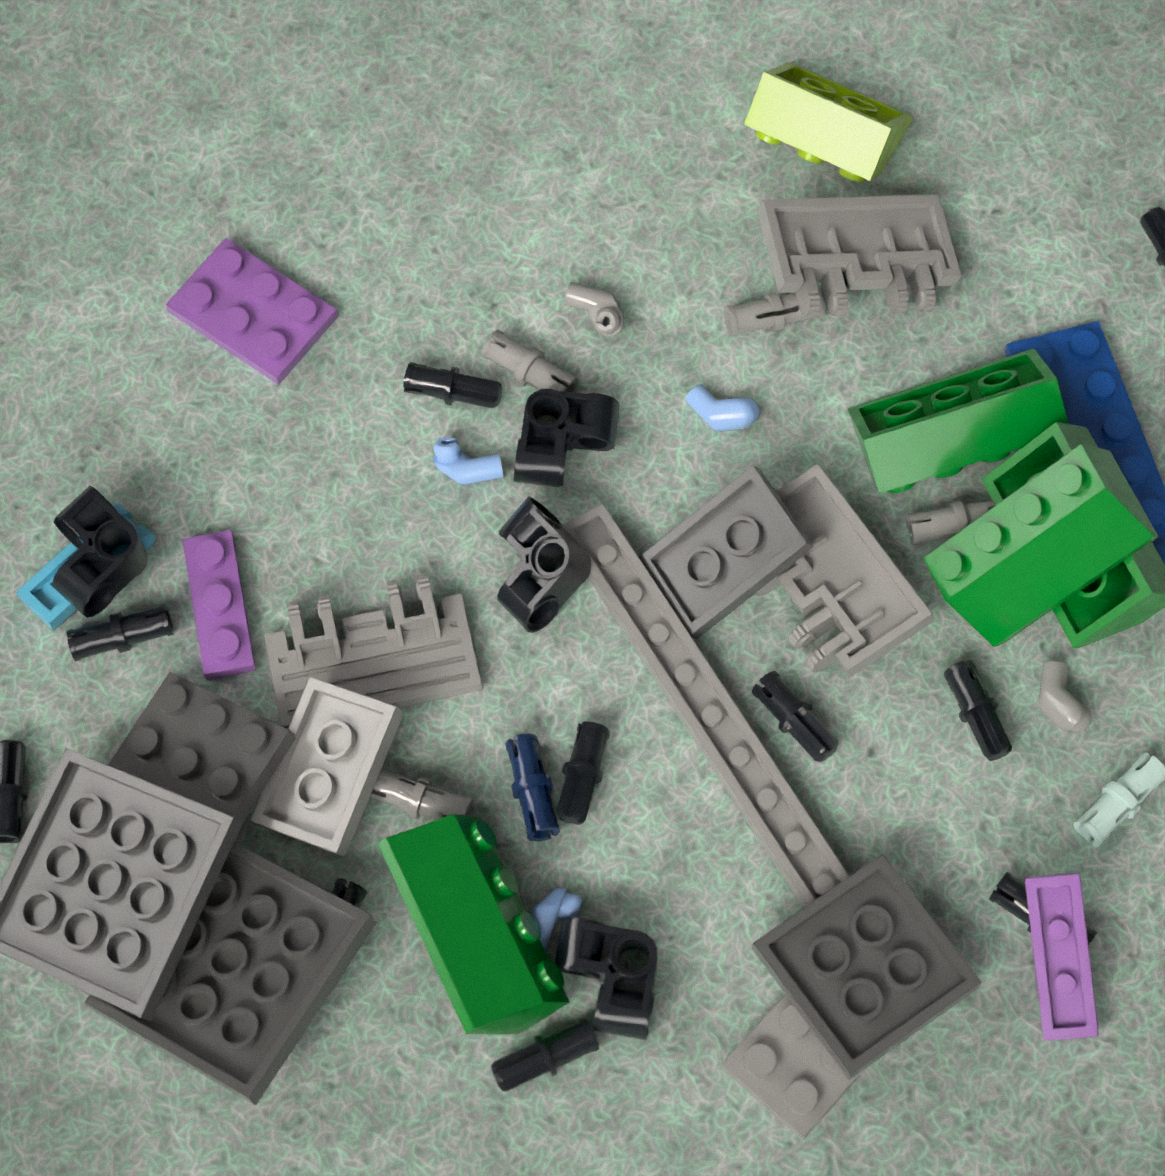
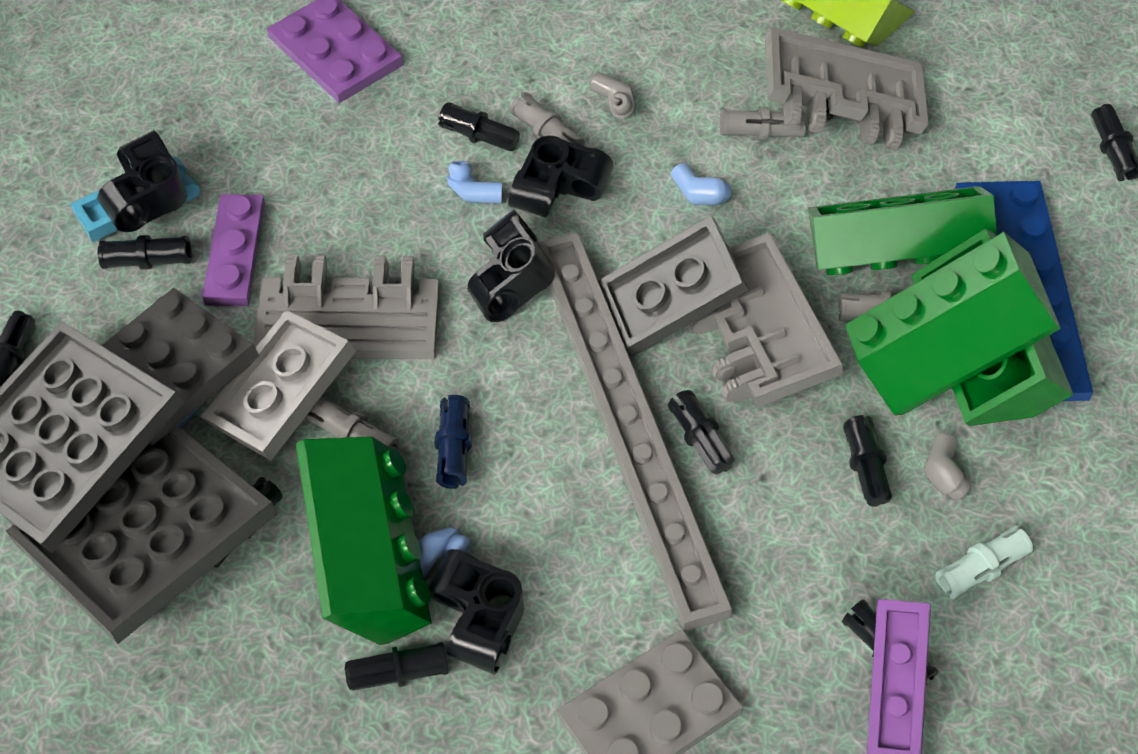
camera: 10 degrees right, 10 degrees down
(582, 772) = (500, 438): black axle -> none
(866, 966) = (711, 648): dark grey plate -> none

